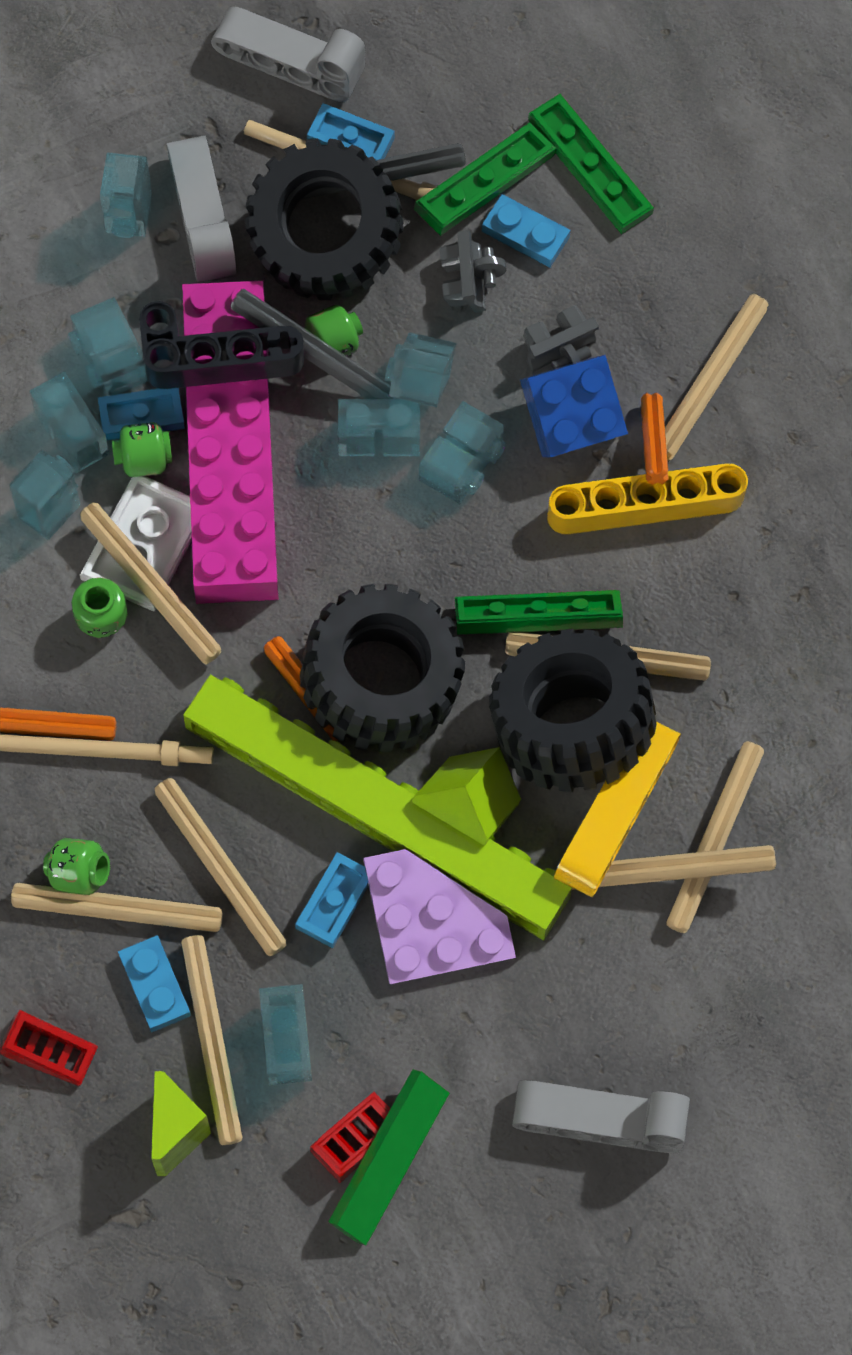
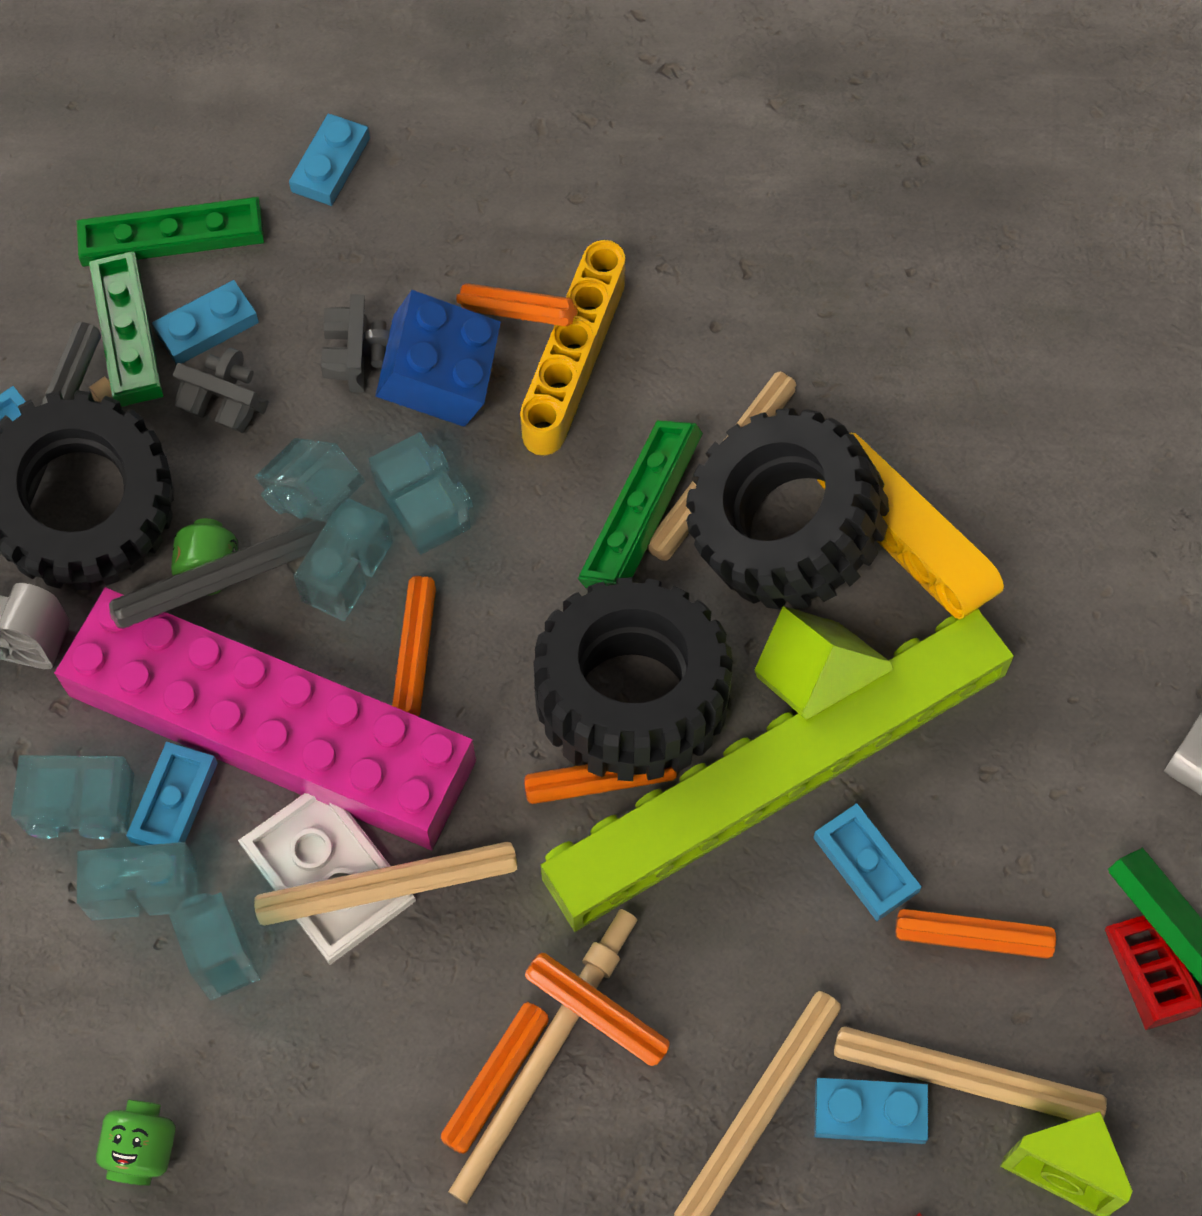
camera: 60 degrees left, 5 degrees down
(76, 866) = (691, 1131): bright green head -> none
(99, 607) = (387, 953): bright green head -> none
(130, 764) = (597, 1009): none -> orange axle
(142, 449) = (220, 815): bright green head -> none
(220, 346) = (164, 660): black beam -> none
(220, 867) = (764, 969): tan axle -> none
(285, 1034) = (1022, 984): clear light blue piece -> none
(320, 1000) = (975, 933): none -> orange axle
(340, 512) = (414, 644): none -> orange axle
(430, 920) = (939, 773): lavender plate -> none
(690, 865) = (1006, 478): tan axle -> none
(713, 373) = (464, 221): tan axle -> none
(717, 833) = (973, 459): tan axle -> none
(720, 240) = (329, 159): none -> dark azure plate

